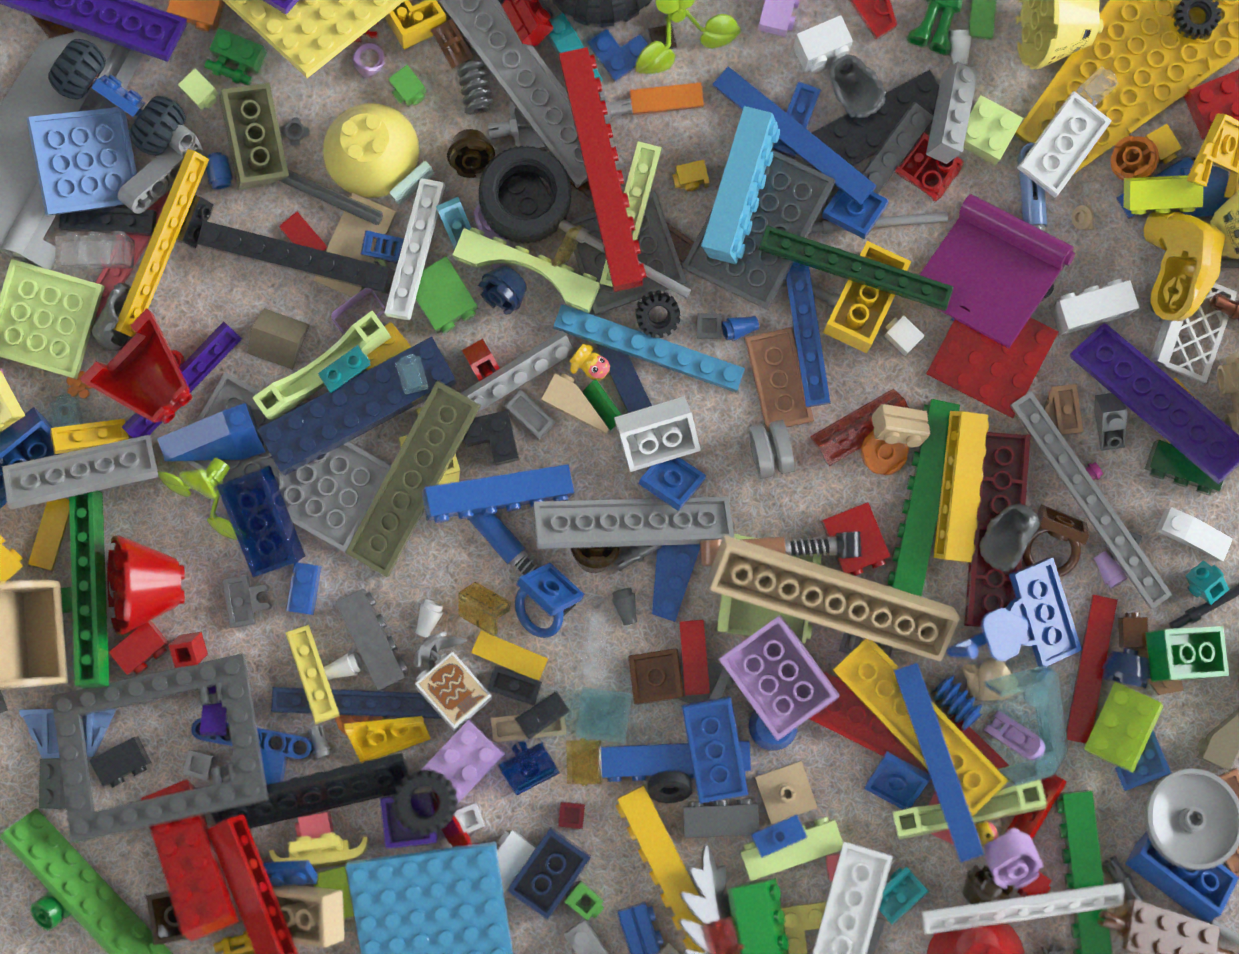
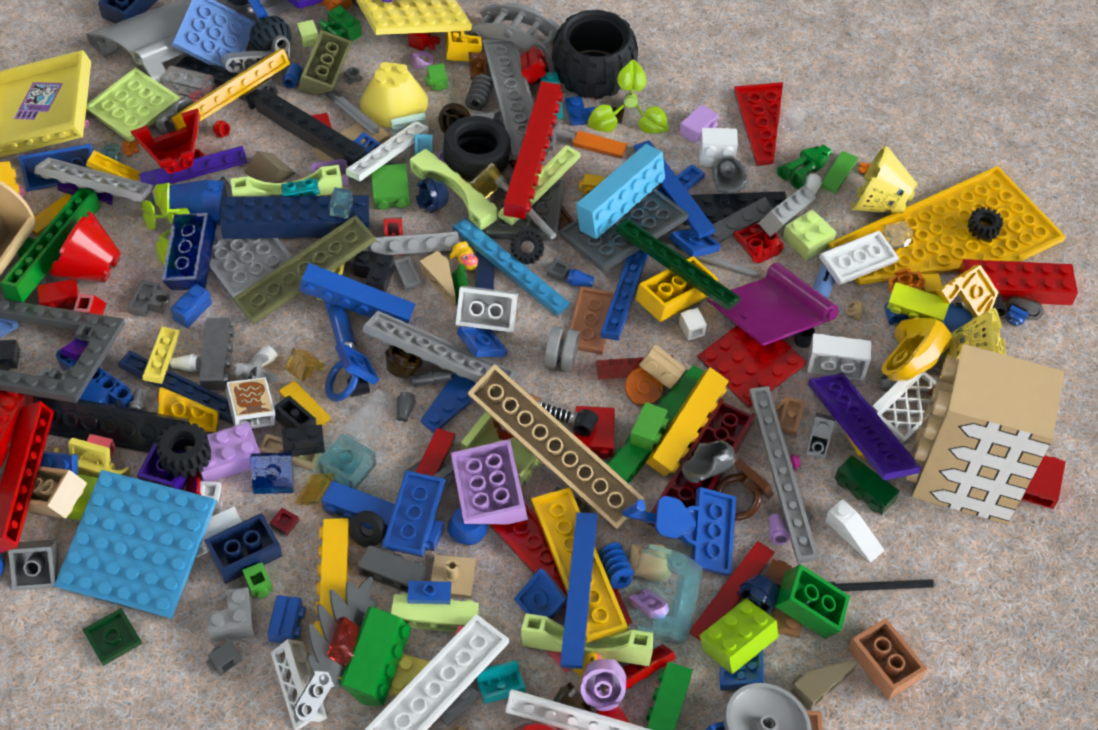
camera: 20 degrees right, 30 degrees down
(178, 303) = (221, 129): none -> red plate
(656, 676) = (399, 456): reddish brown plate -> none
(922, 516) = (649, 426): none -> bright green brick
(1207, 582) = (850, 564): teal brick -> none

